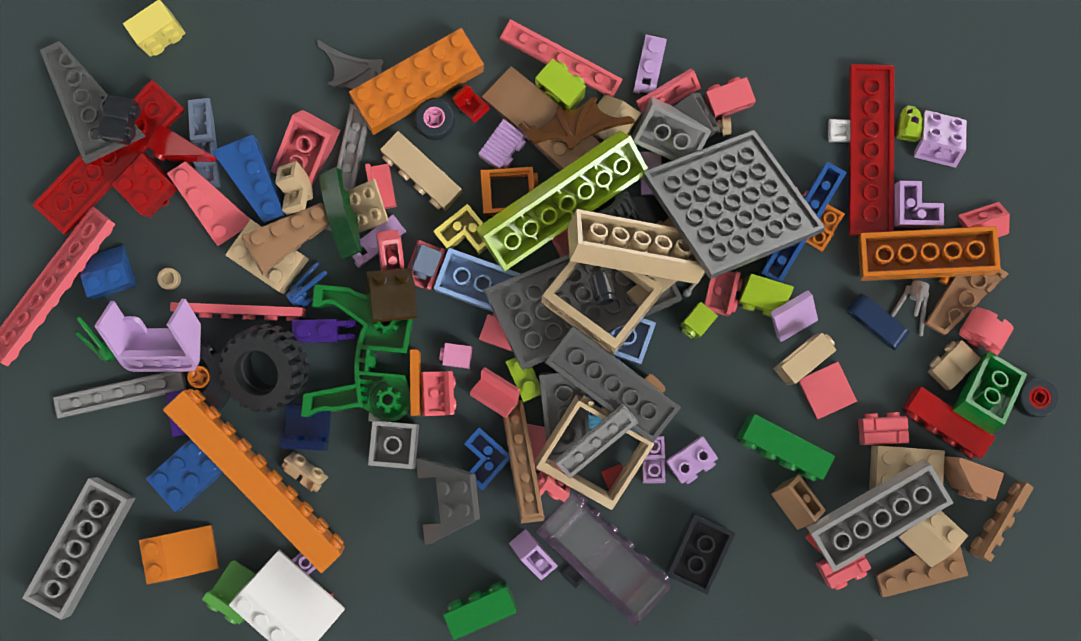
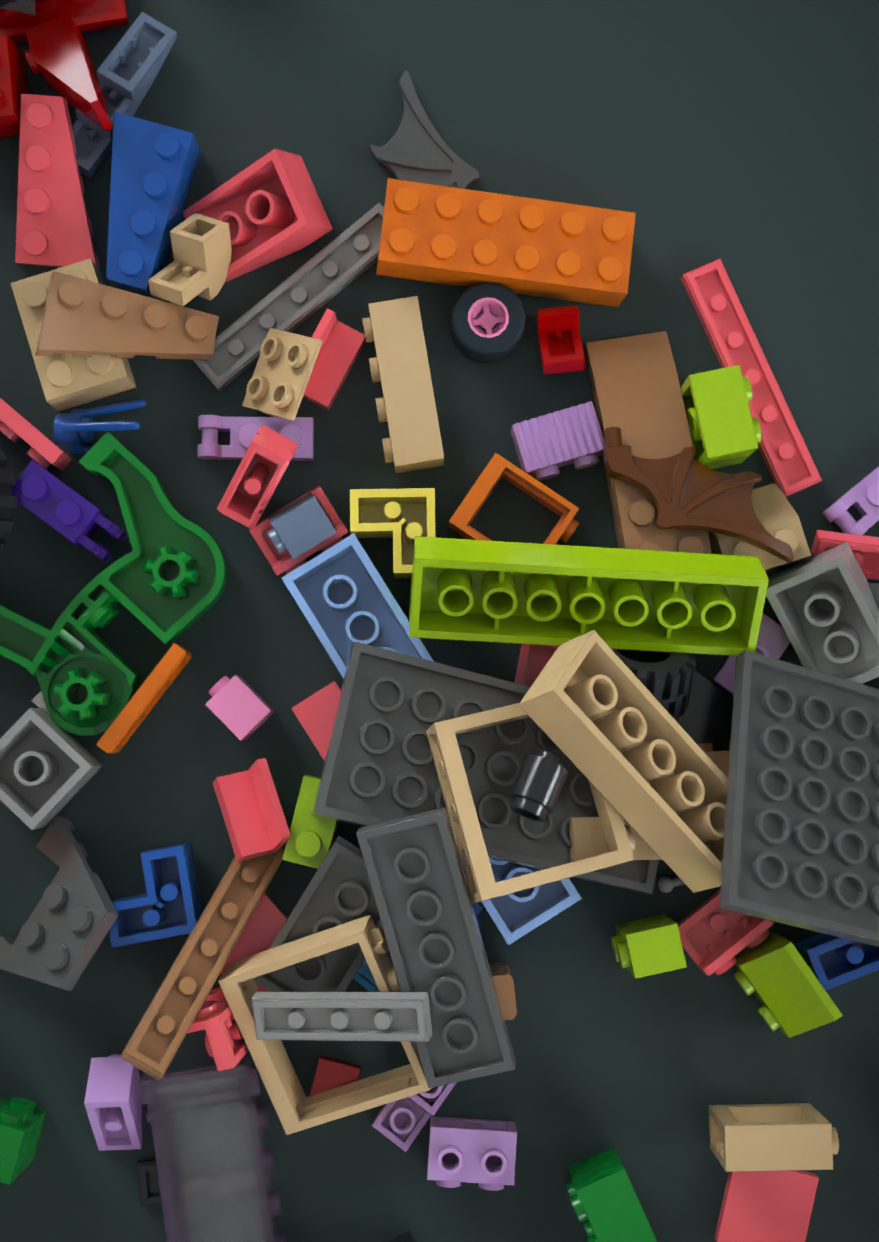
camera: 35 degrees right, 0 degrees up
(339, 213) = (228, 357): dark green slope -> none
(391, 295) = (207, 538): dark brown slope -> none
(437, 393) = (165, 741): coral bracket -> none
(794, 316) = (806, 1055): lavender tile -> none

